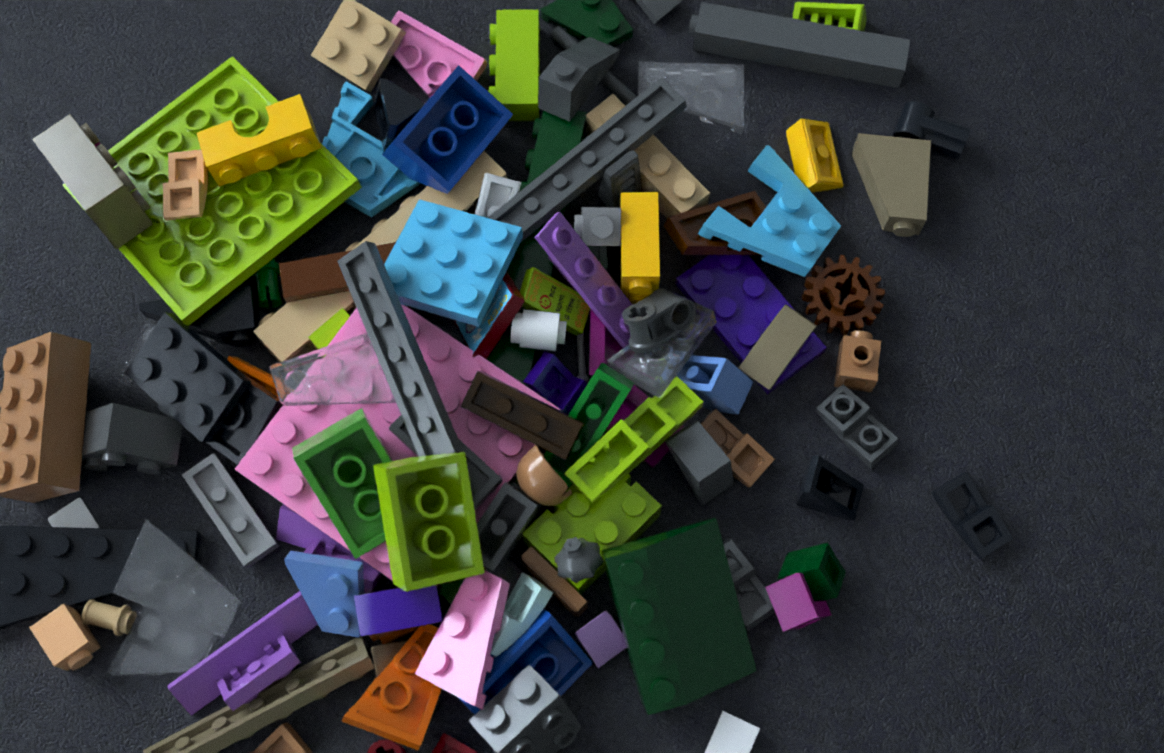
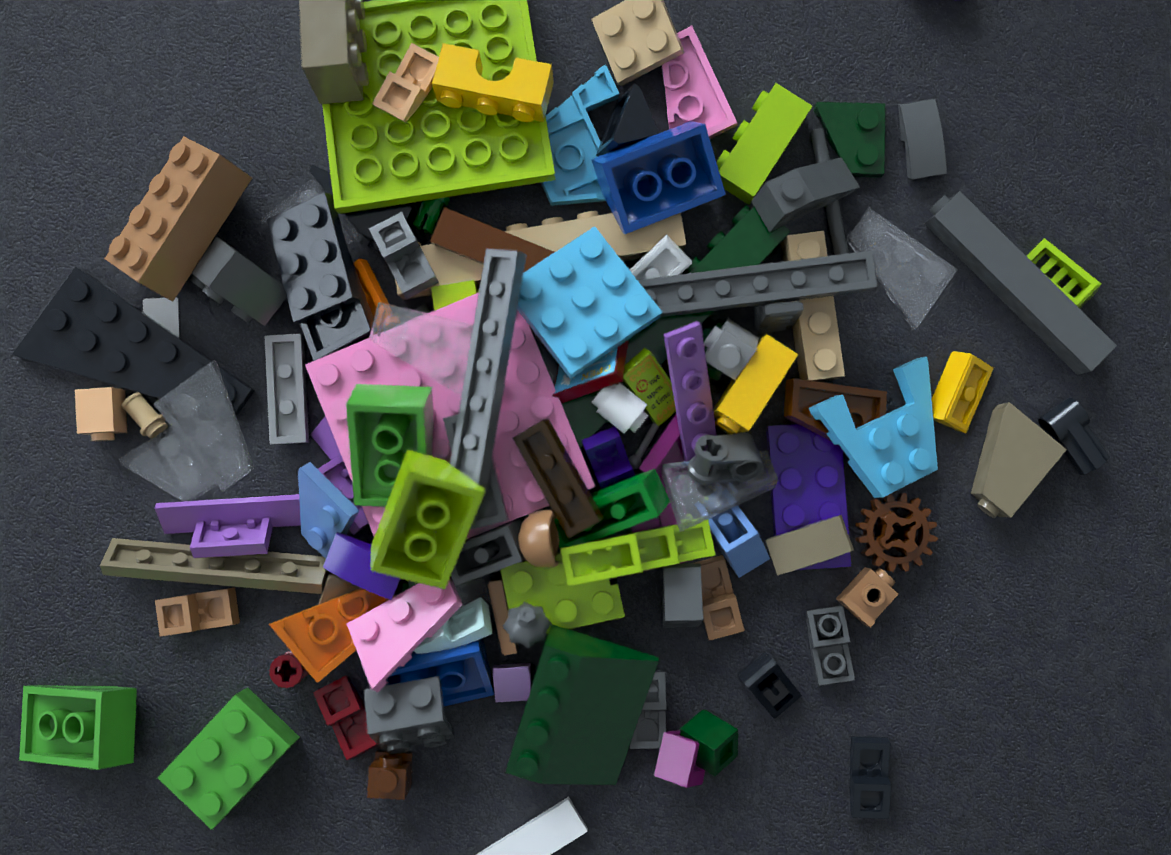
camera: 30 degrees right, 15 degrees up
(267, 324) = (403, 255): none -> dark grey slope

